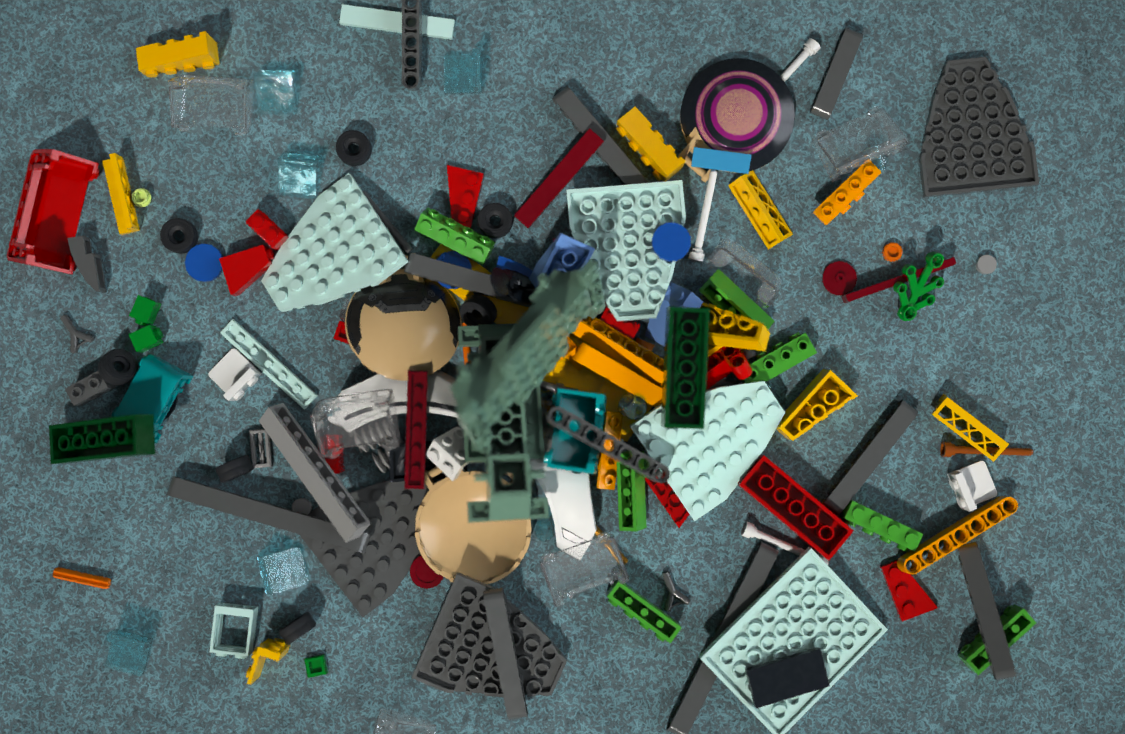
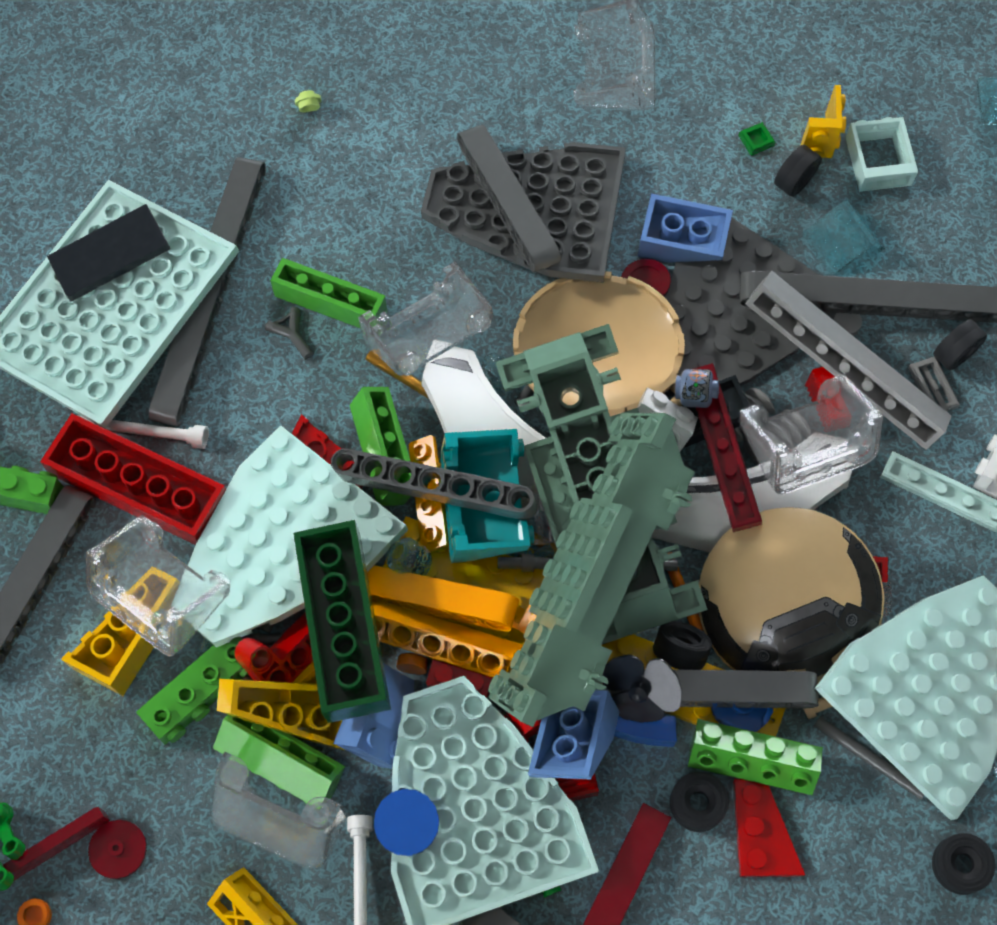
camera: 165 degrees right, 20 degrees down
(390, 599) = (683, 231): none -> medium blue slope
(421, 470) = (696, 388): none -> sand blue head
(794, 423) = (151, 586): none -> clear windscreen

